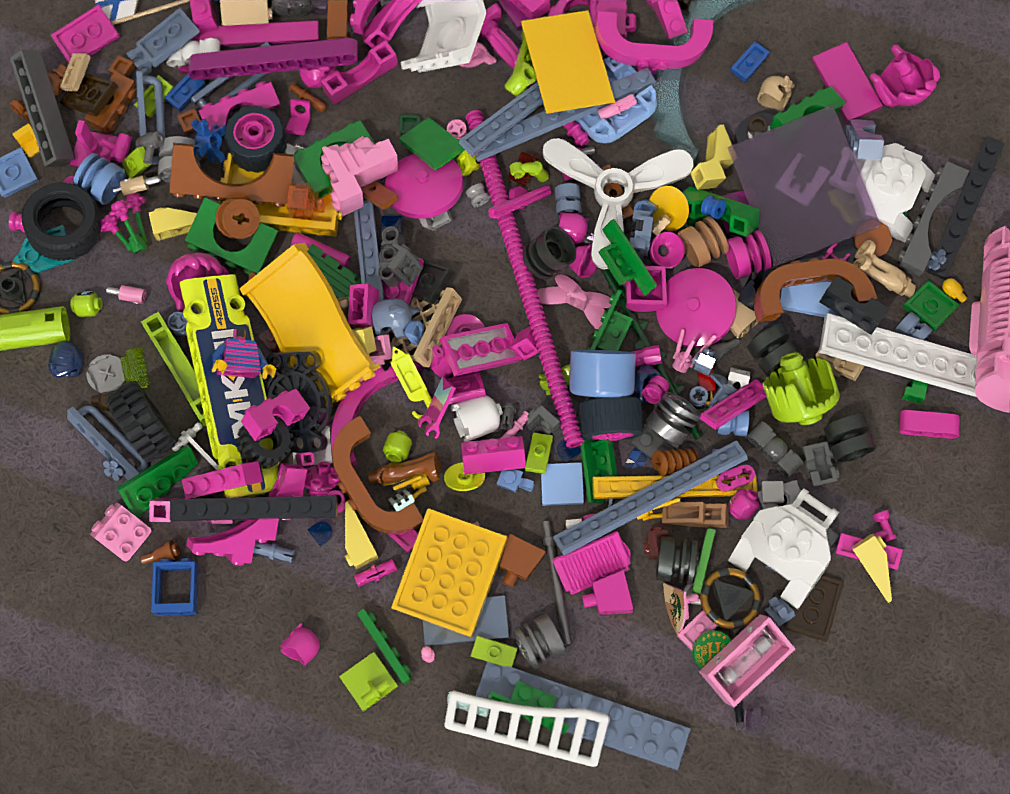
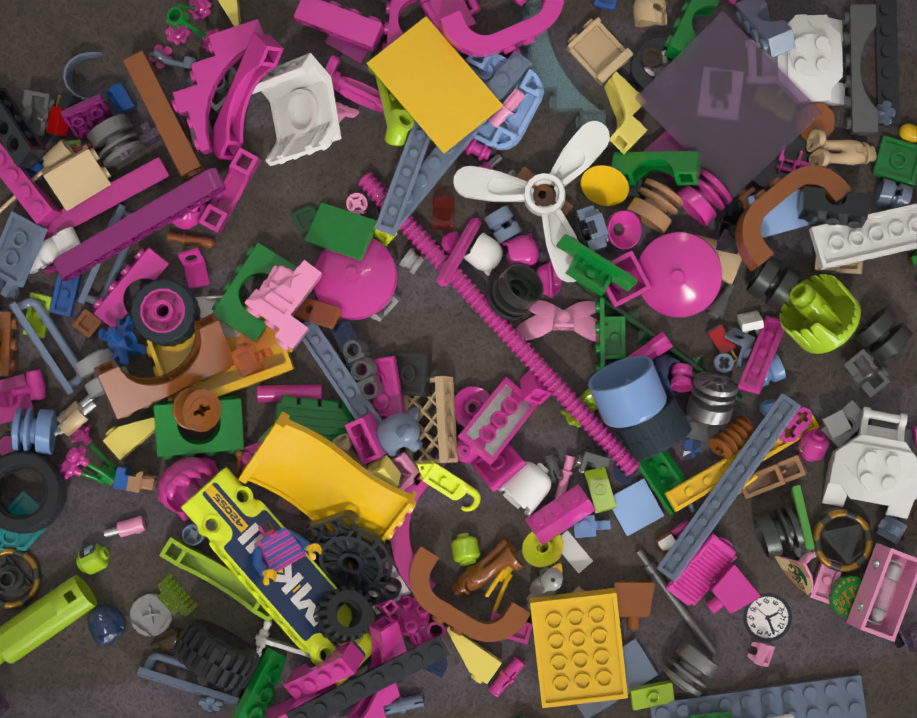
camera: 30 degrees left, 15 degrees up
(134, 163) = (62, 396): lime plate -> none
(150, 141) = (65, 373): flat silver piece -> none
(154, 255) = (134, 482): none -> medium nougat hips
(260, 419) = (336, 606): dark pink arch -> none
(405, 264) = (385, 375): dark grey bracket -> none
(407, 495) = (492, 597): light aqua tile -> none
(414, 332) = (427, 436): medium blue tile -> none
(437, 407) = (487, 497): dark pink flag -> none
(454, 503) = (547, 583): none -> light grey animal
(489, 497) = (574, 553): none -> white sticker
(533, 168) = (454, 209): lime piece -> none
(540, 215) = (485, 254): none -> white helmet
(611, 665) = (763, 655): none -> bright pink tile
(631, 637) = (767, 617): none -> sticker
(646, 205) = (580, 196): medium blue tile -> none
(650, 546) = (746, 526): clear red bracket -> none
(660, 224) = (606, 205): tan tile -> none
(683, 359) = (692, 331): bright pink plant -> none
(704, 361) = (714, 327): sand blue plate -> none
(713, 207) = (651, 169): blue wheel -> none
(716, 105) = (598, 51): none -> tan panel
(774, 449) = (817, 378): dark grey piece -> none

